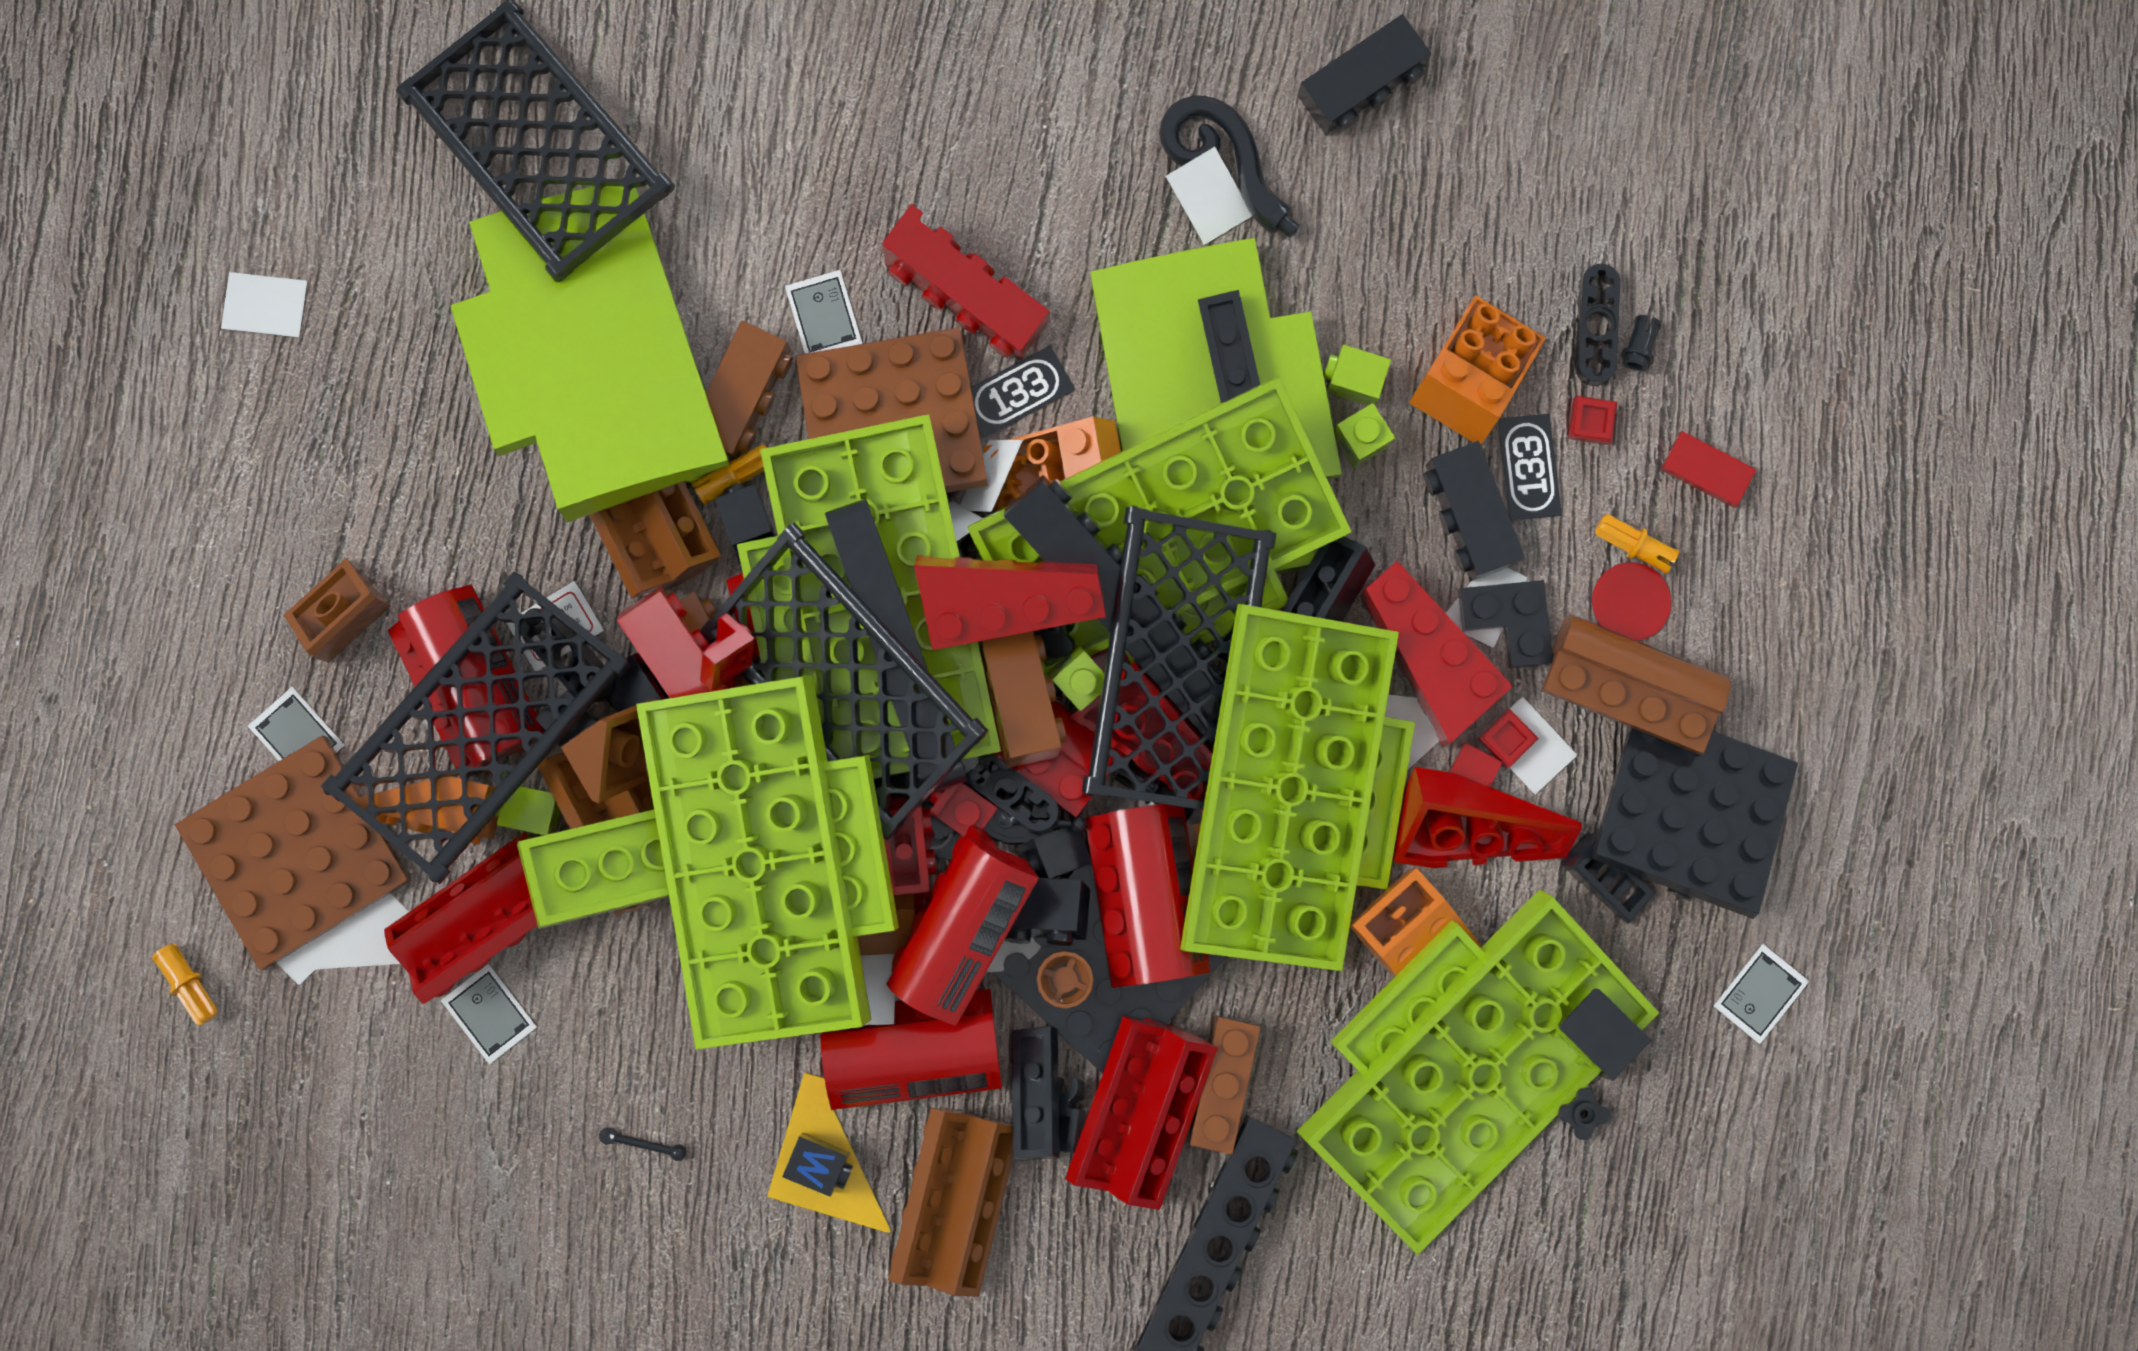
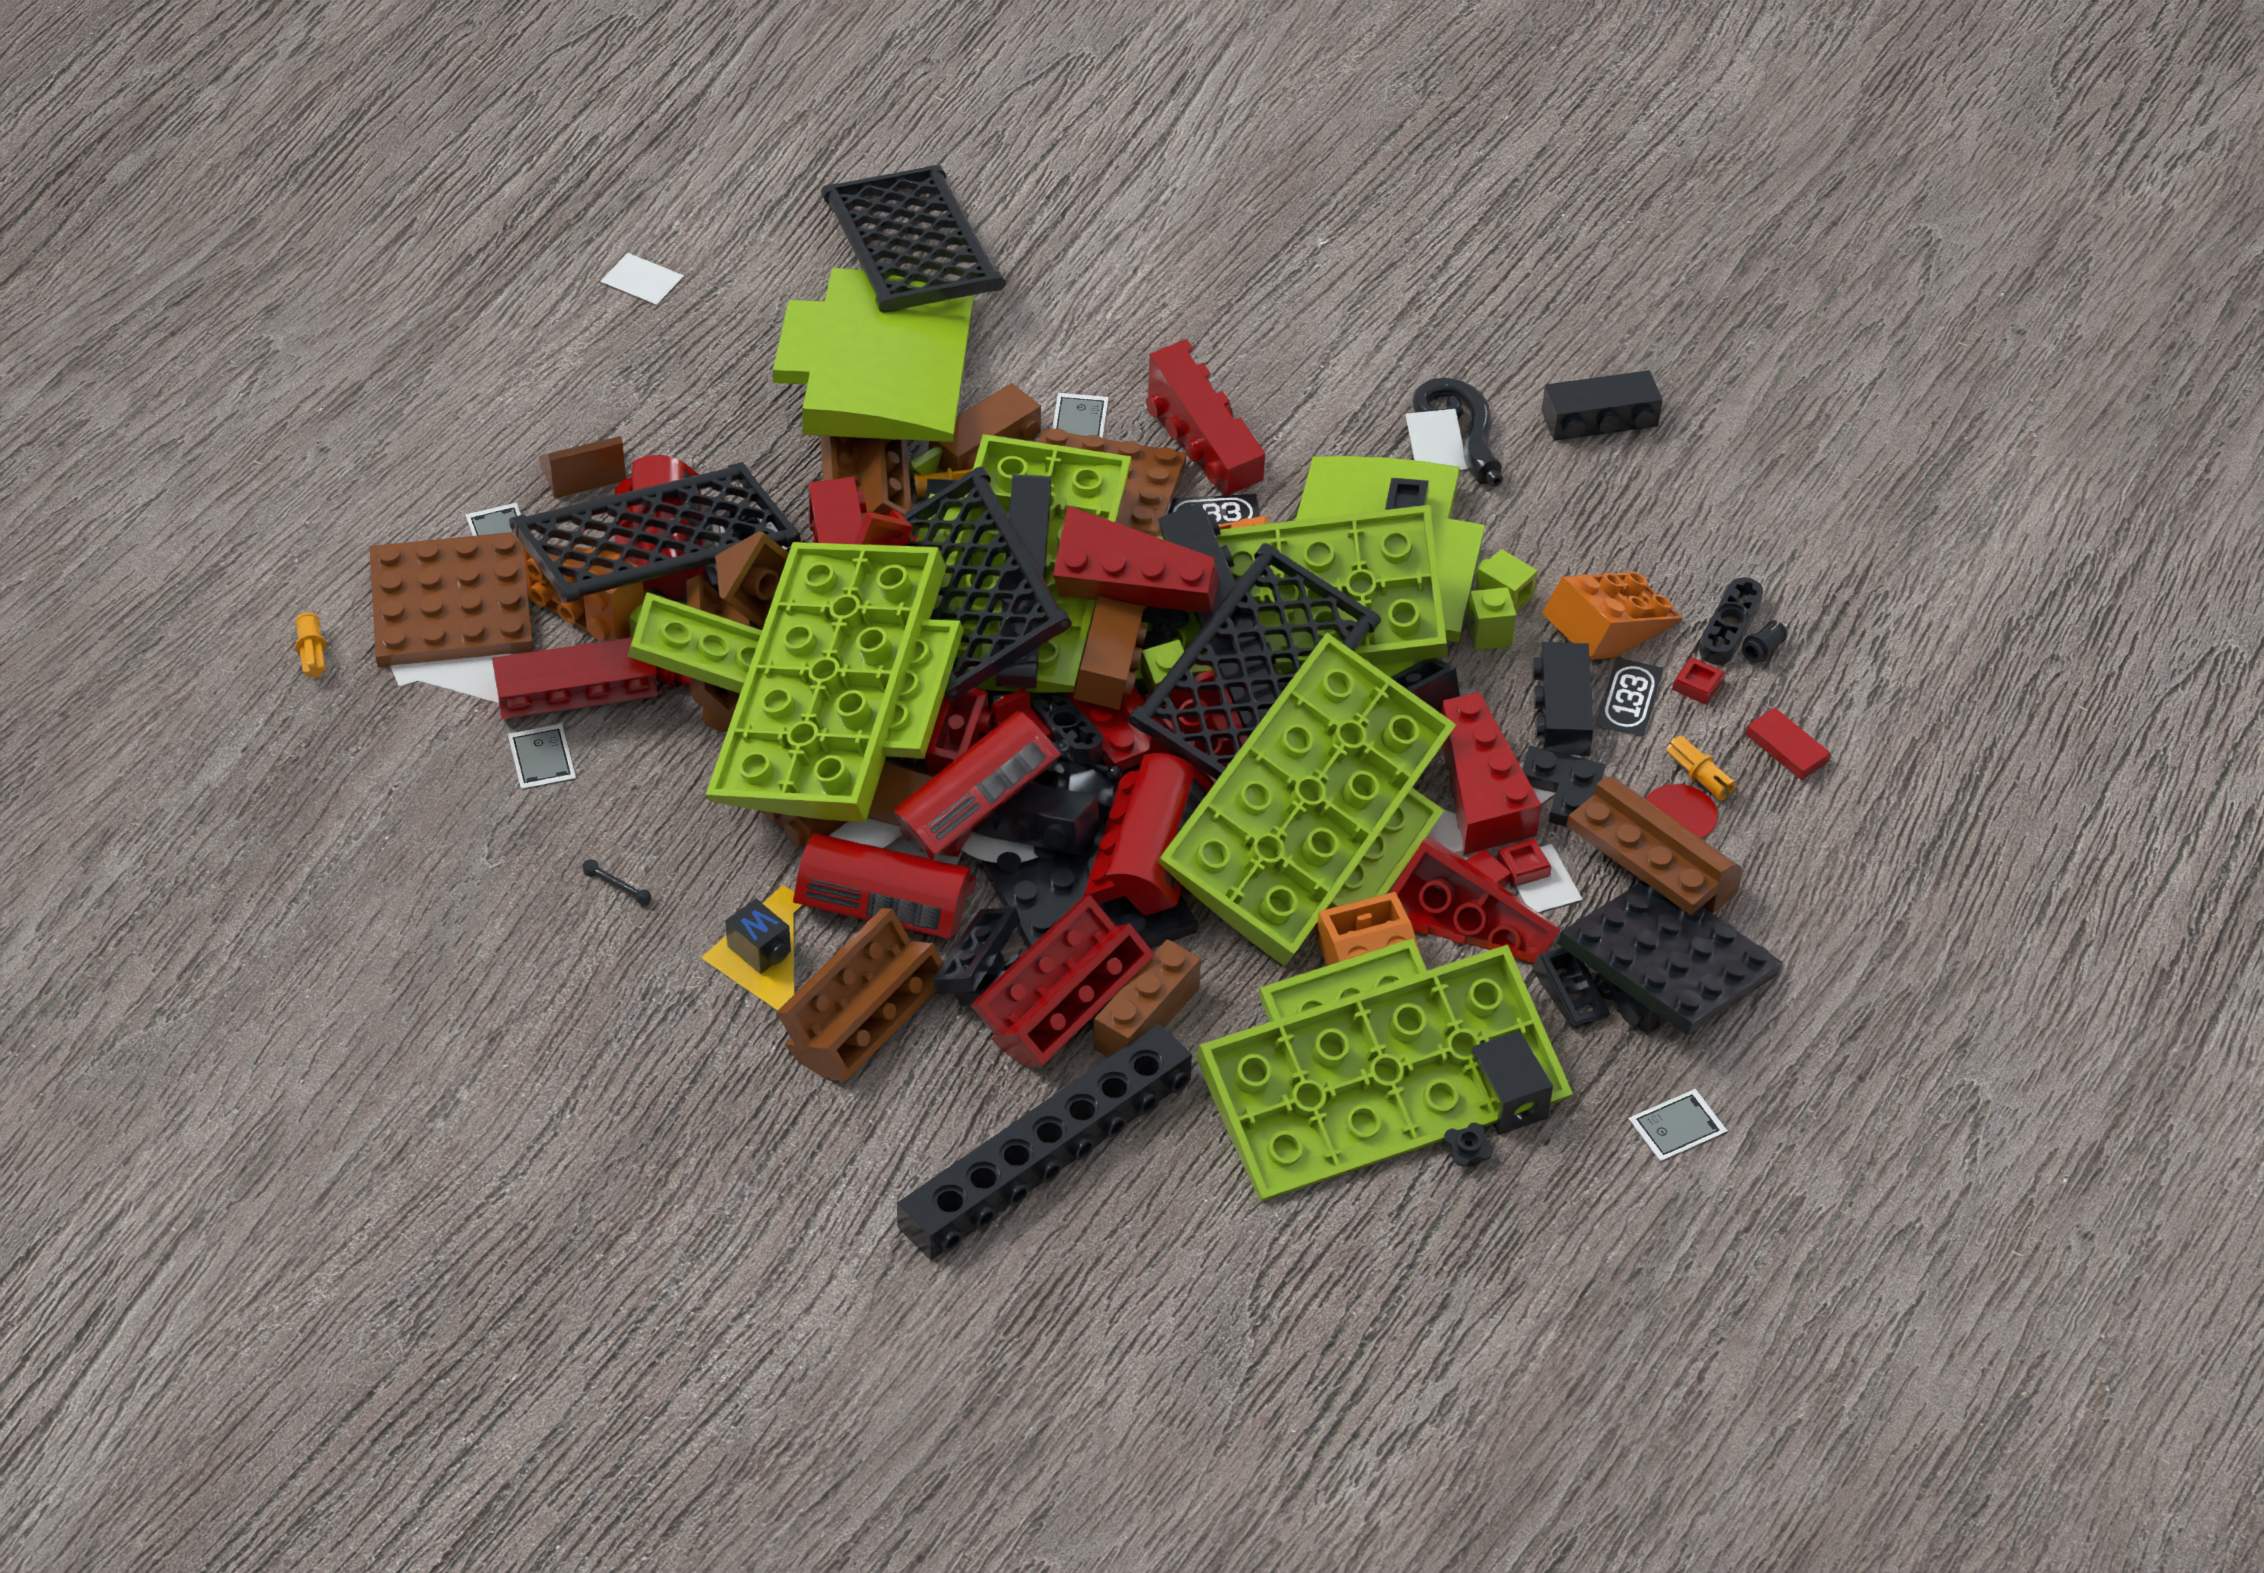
camera: 25 degrees right, 35 degrees down
(1064, 979) = (1045, 865): dark orange wheel -> none

